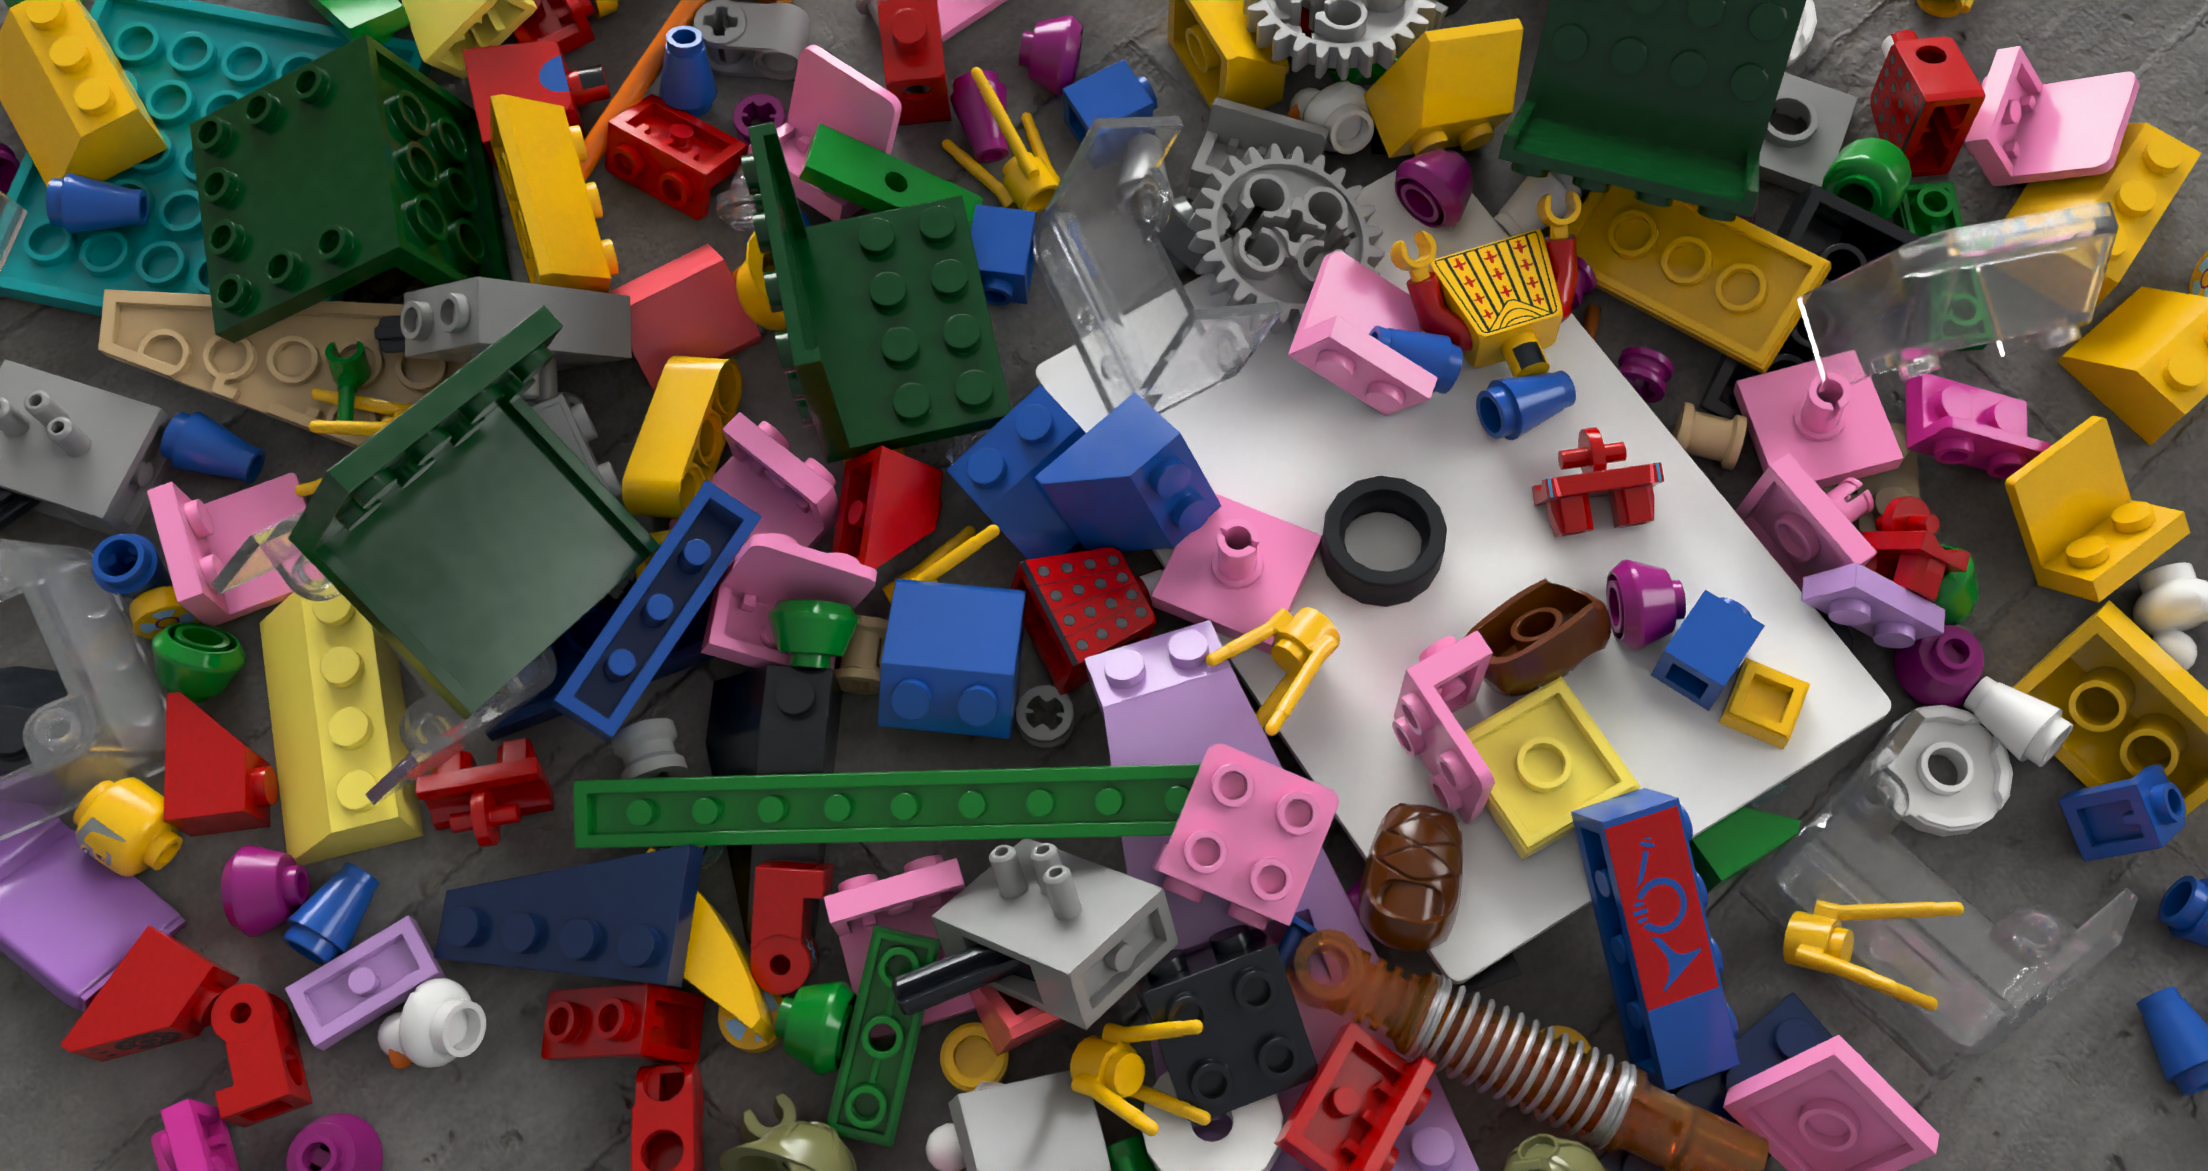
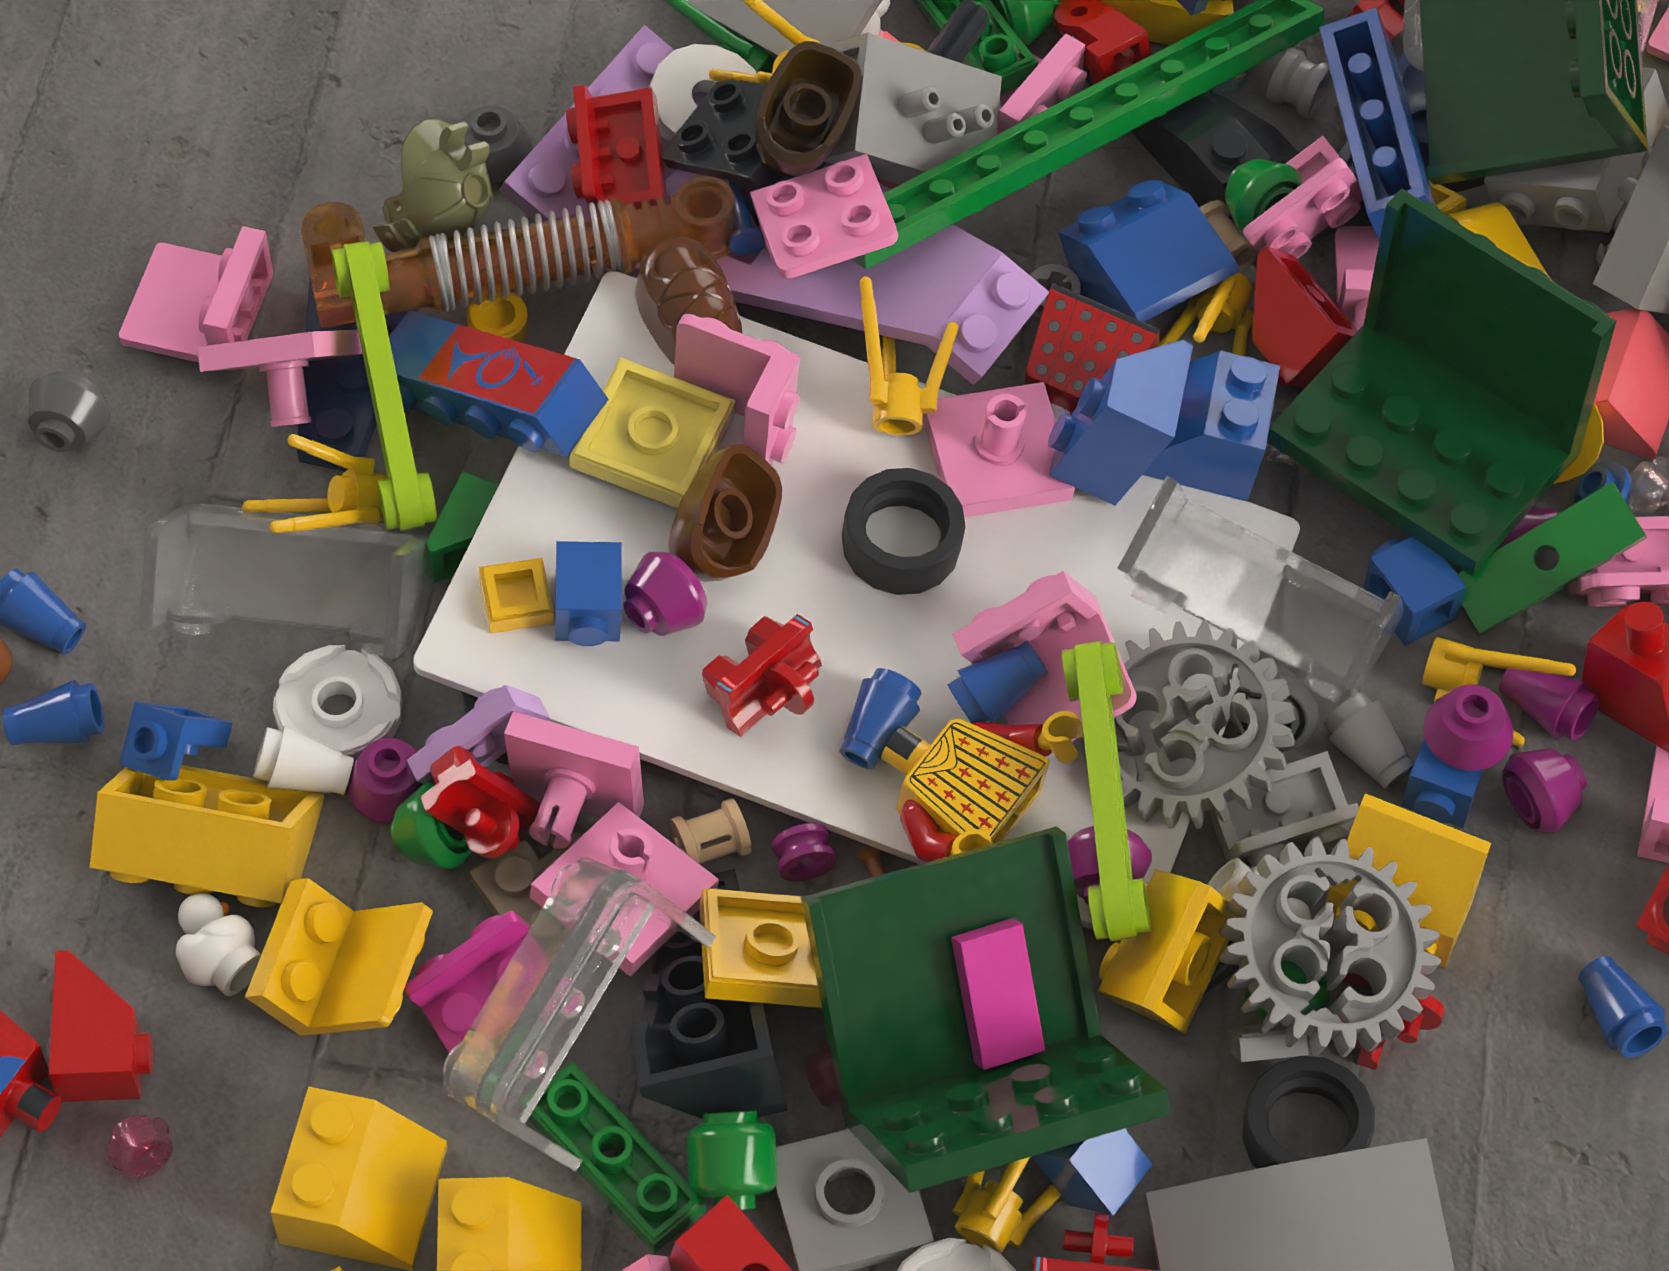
camera: 140 degrees right, 10 degrees down
(1086, 88) = (1468, 728): none -> magenta cone
(1185, 943) = (805, 108): none -> dark brown piece
(1361, 268) = (1119, 902): none -> lime piece
(1605, 128) = (998, 993): none -> dark pink tile
(1723, 1113) = (405, 496): none -> lime piece

